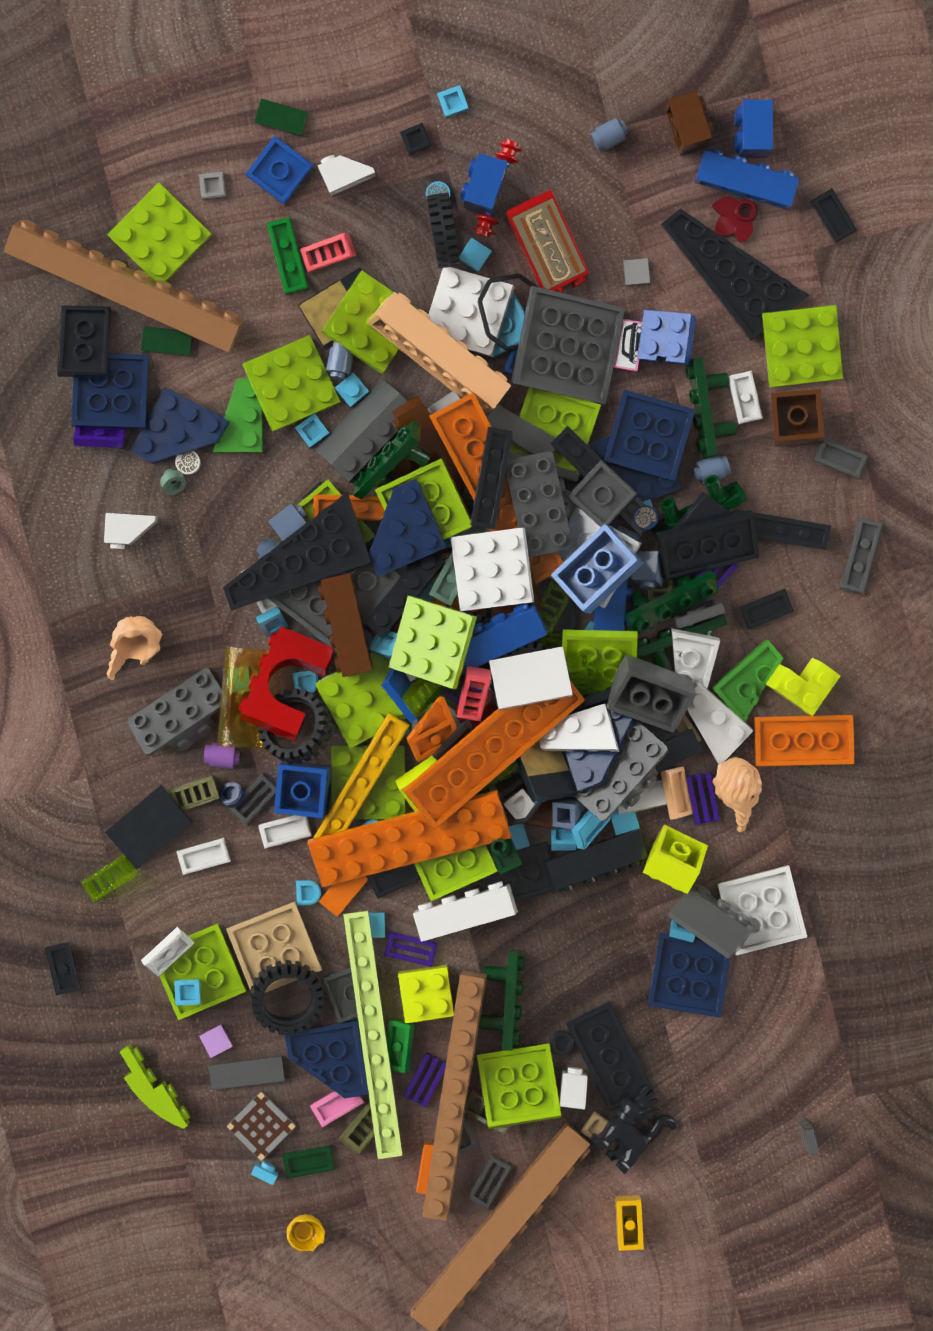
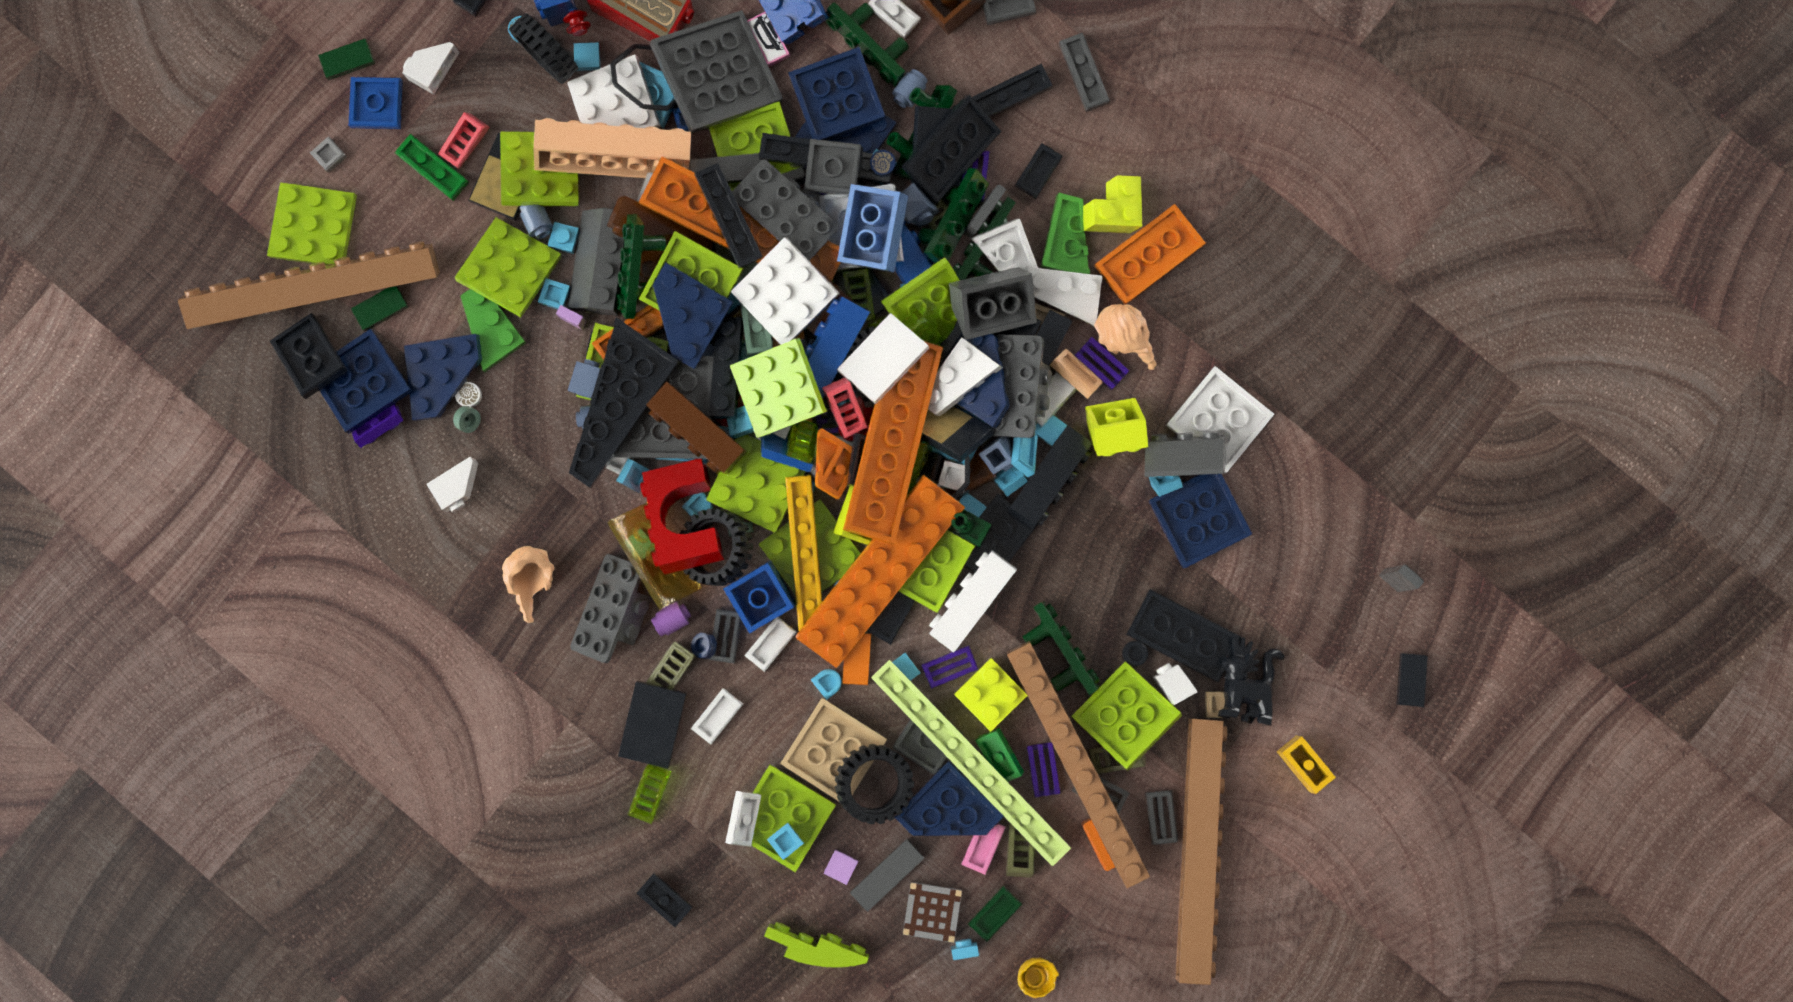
camera: 30 degrees left, 5 degrees down
(312, 460) = (571, 317): none -> lavender tile
(760, 1217) = (1411, 680): none -> black tile

